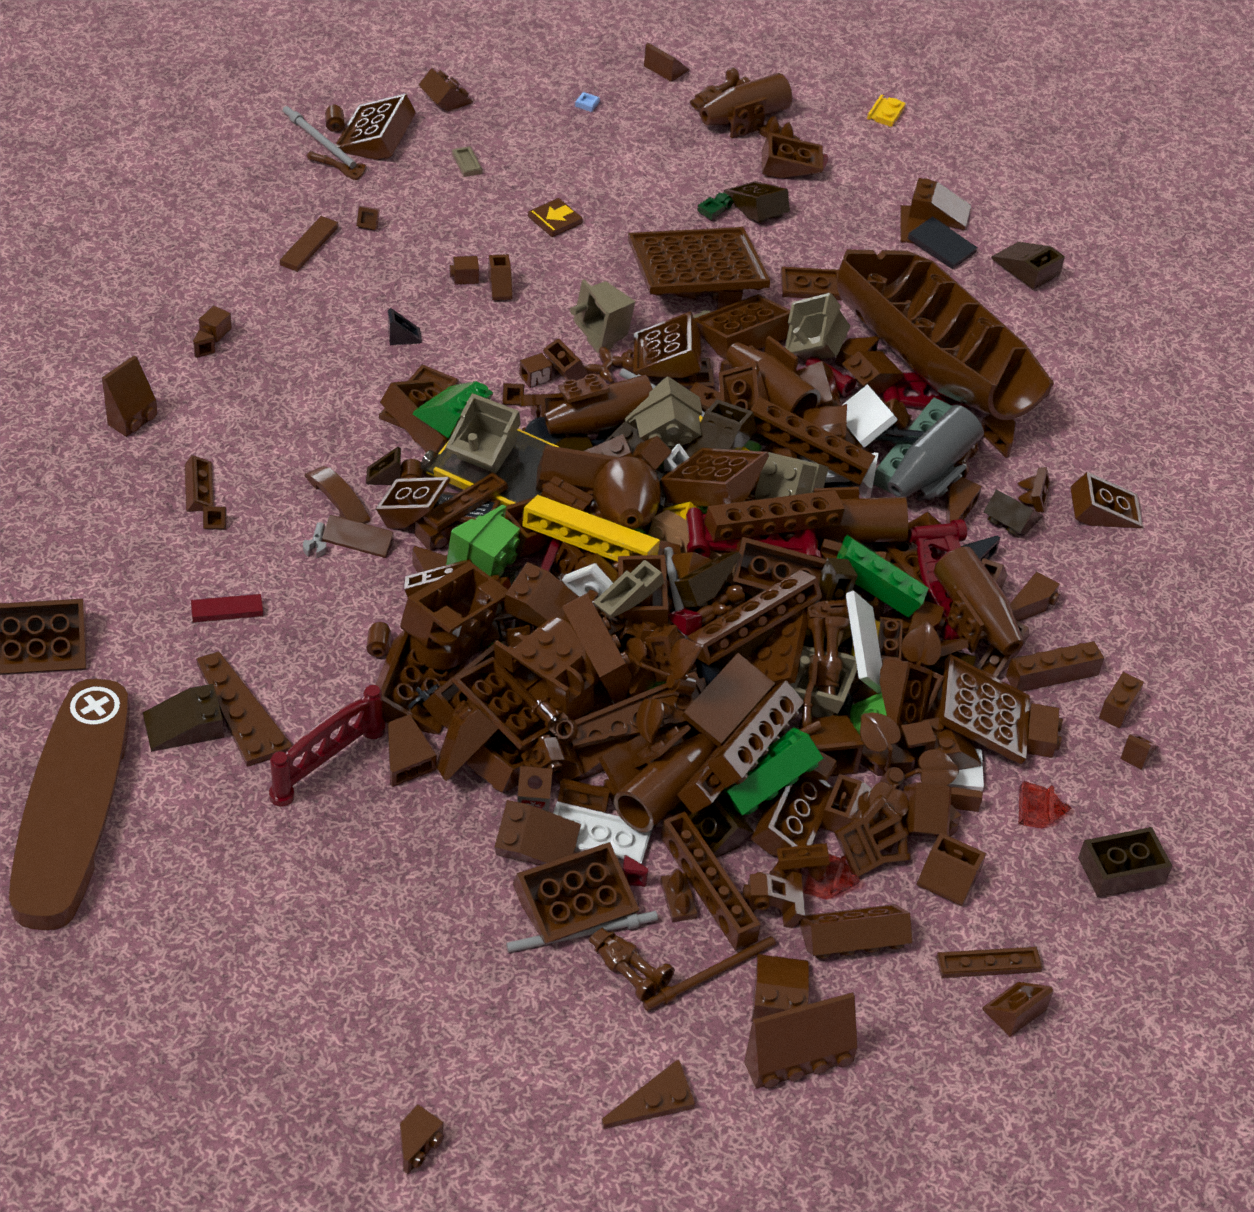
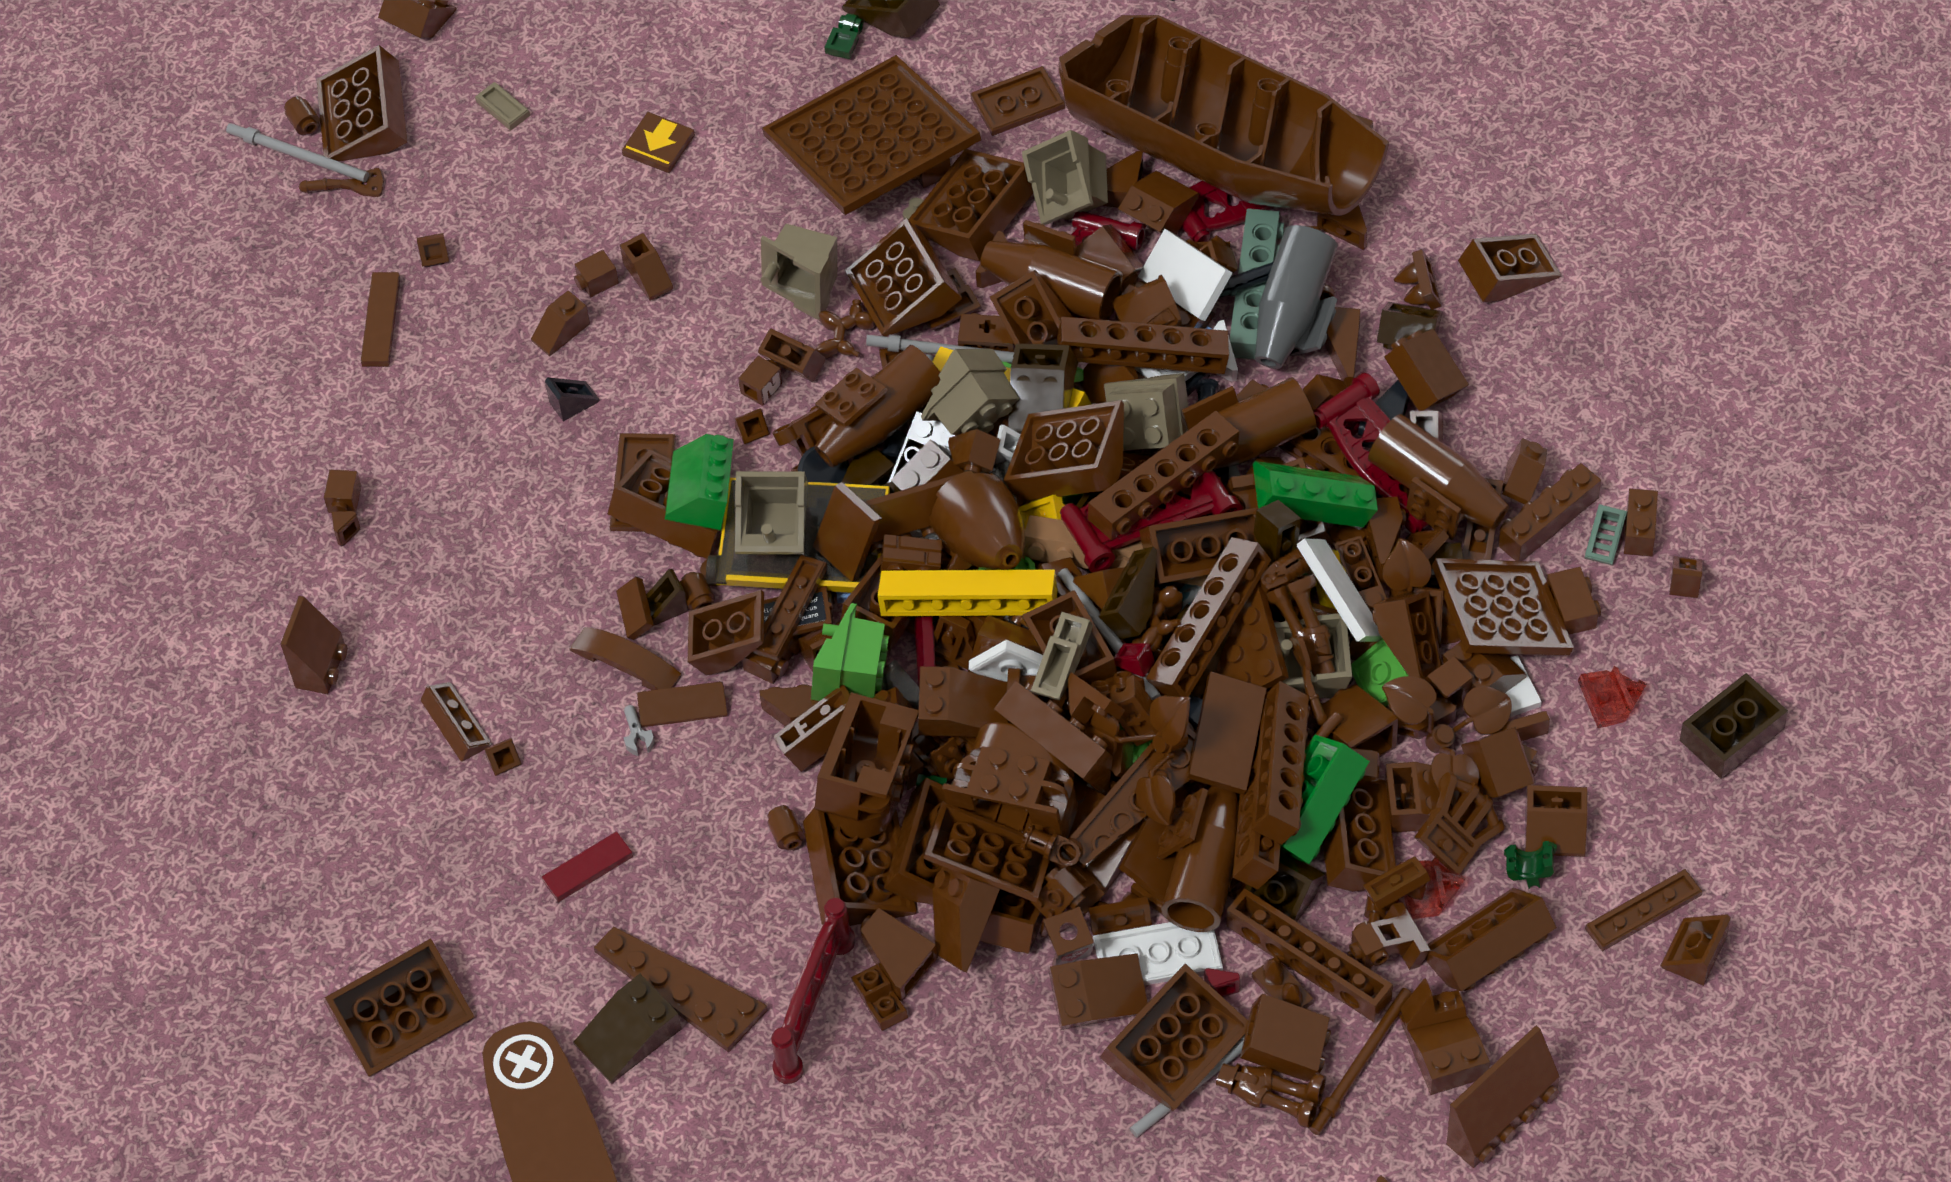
camera: 15 degrees left, 10 degrees up
(363, 466) = (634, 608): none -> reddish brown tile
(377, 776) = (879, 997): none -> reddish brown slope
(423, 695) = (880, 877): black piece -> none
(424, 287) = (560, 323): none -> reddish brown slope
(529, 464) = (847, 532): none -> reddish brown tile
(630, 626) = (1086, 700): none -> reddish brown slope
(659, 929) = (1285, 1038): none -> reddish brown brick
(779, 957) = (1424, 1009): none -> reddish brown slope
(914, 892) = (1530, 865): none -> dark green piece
(1009, 538) = (1425, 369): none -> reddish brown brick
(1035, 597) = (1486, 429): reddish brown slope -> none
(1049, 630) = (1524, 471): none -> reddish brown slope
(1094, 684) = (1609, 514): none -> sand green slope

